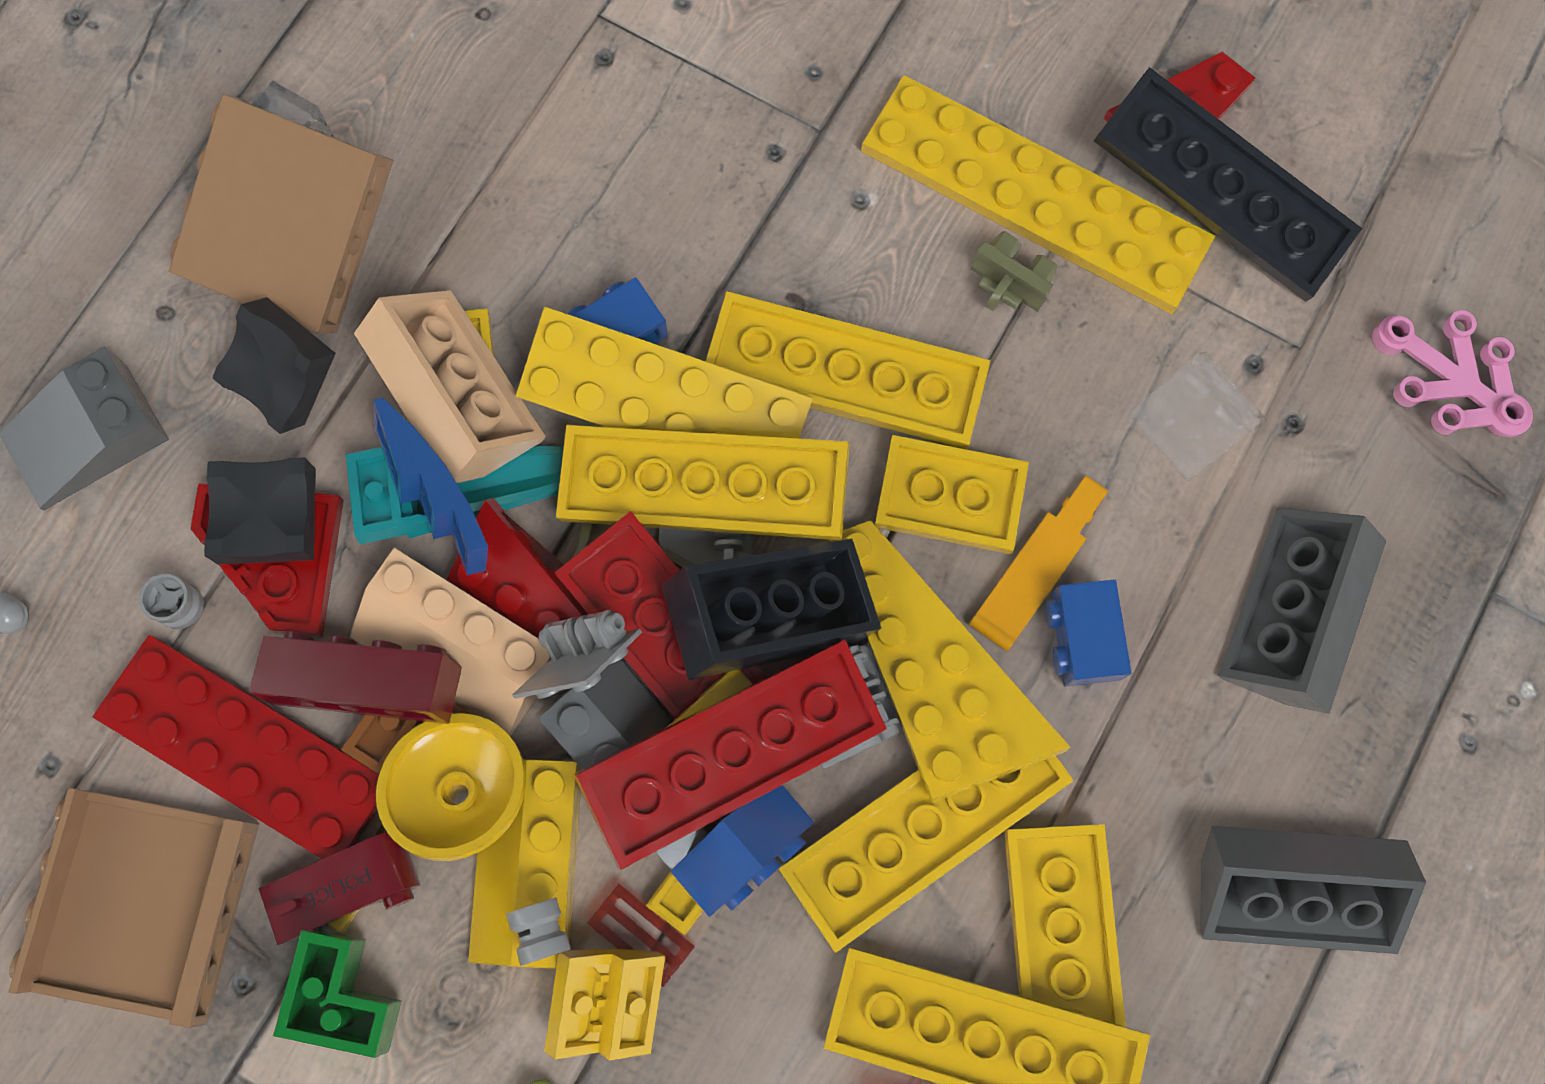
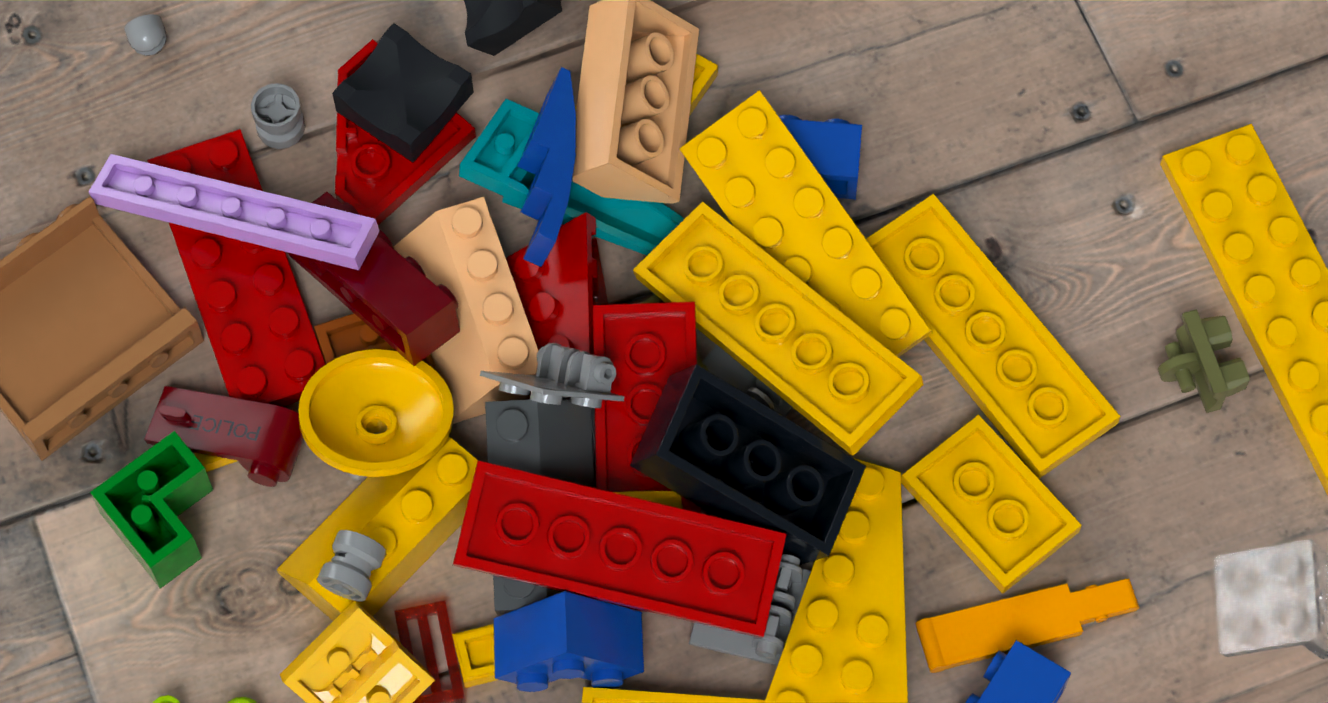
camera: 45 degrees right, 10 degrees down
(201, 712) = (235, 211): none -> lavender plate

